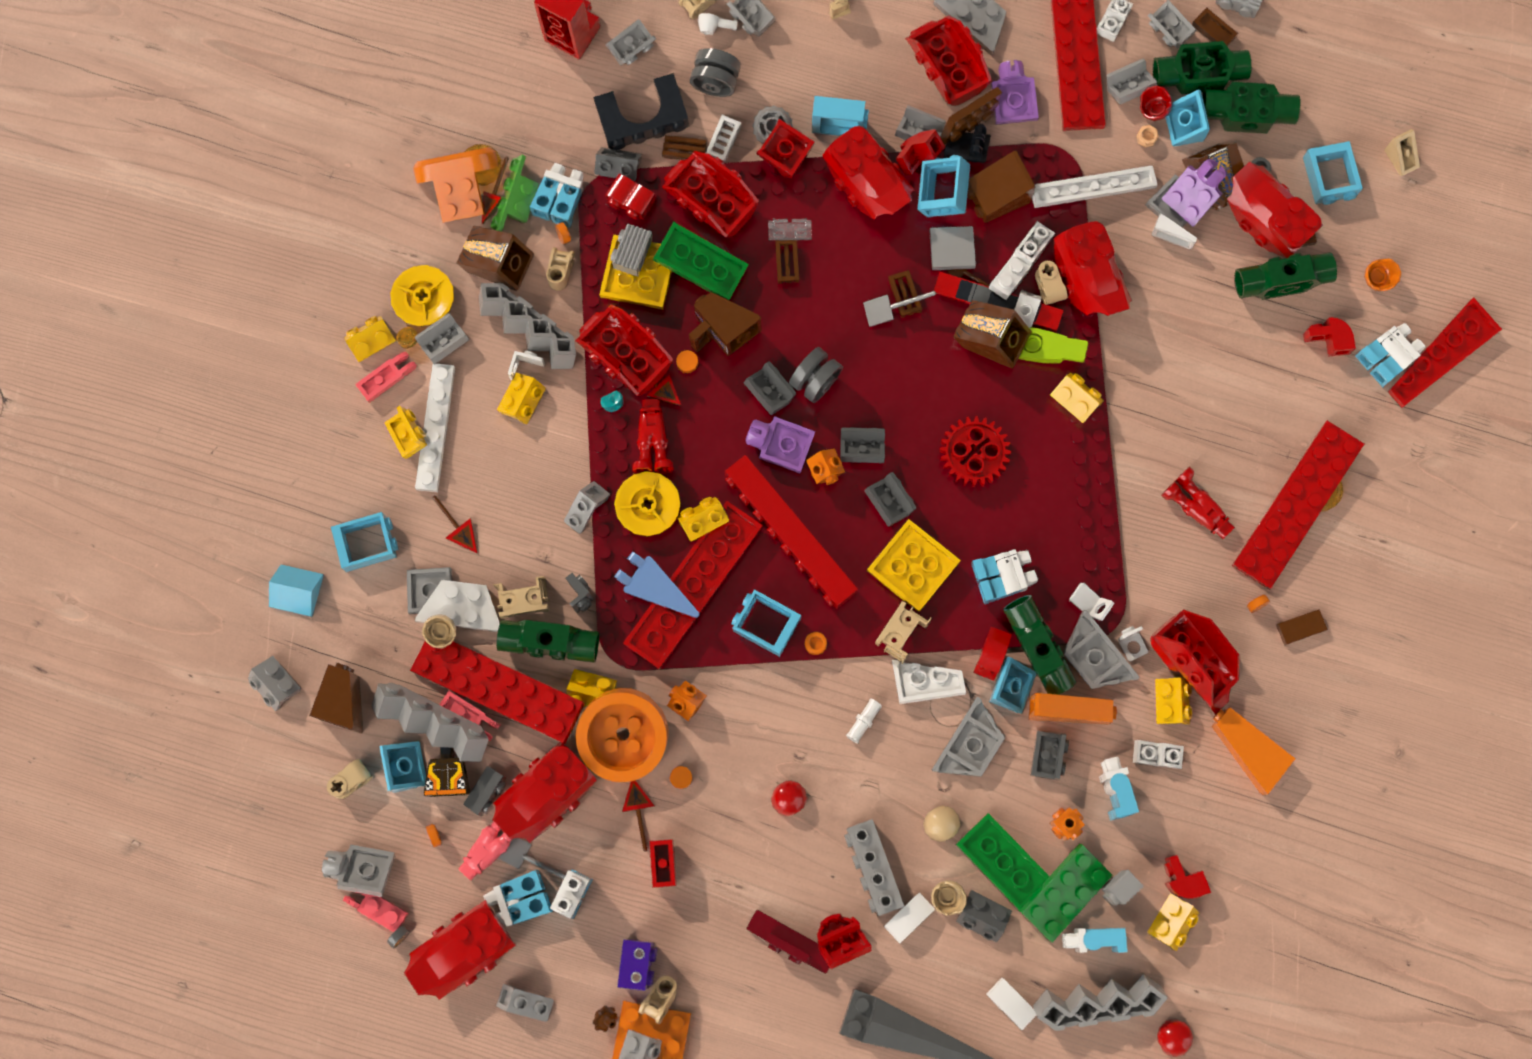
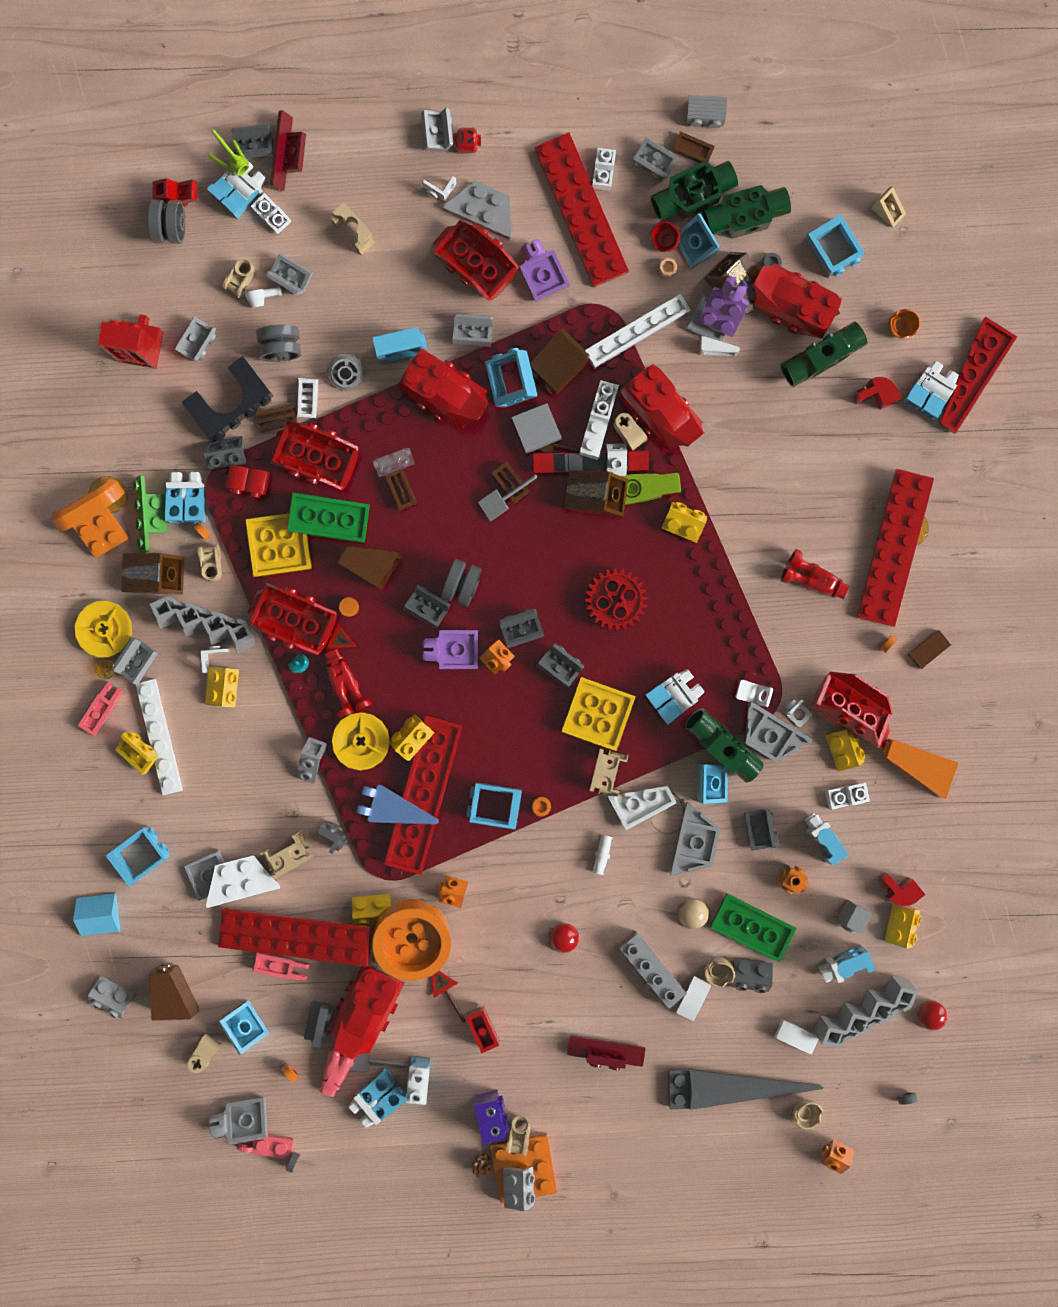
camera: 25 degrees left, 10 degrees up
(369, 338) = (72, 681): yellow bracket -> none
(425, 716) = (245, 981): light grey brick -> none
(439, 631) = (230, 910): tan hair -> none
(446, 776) = (282, 1021): torso -> none
(458, 952) = (345, 1159): red slope -> none
(463, 534) = (217, 819): piece -> none
(490, 200) = (129, 525): reddish brown piece -> none
(524, 1003) = (412, 1178): light grey bracket -> none
(530, 638) = (307, 888): dark green brick -> none
(631, 250) = (266, 529): light grey brick -> none
(681, 777) = (471, 953): orange tile -> none
(700, 336) = (352, 584): reddish brown tile -> none
(786, 149) = (364, 391): red slope -> none
(791, 532) = (486, 721): red brick -> none
(841, 940) = (646, 1037): red slope -> none
(919, 148) = (476, 351): red brick -> none
(970, 116) = (512, 306): reddish brown plate -> none
(970, 146) = (518, 331): black hinge -> none
(992, 653) = (688, 763): red brick -> none
(1065, 892) = (810, 934): green plate -> none
(1071, 709) = (766, 786): orange slope -> none
(1129, 81) = (637, 224): light grey bracket -> none

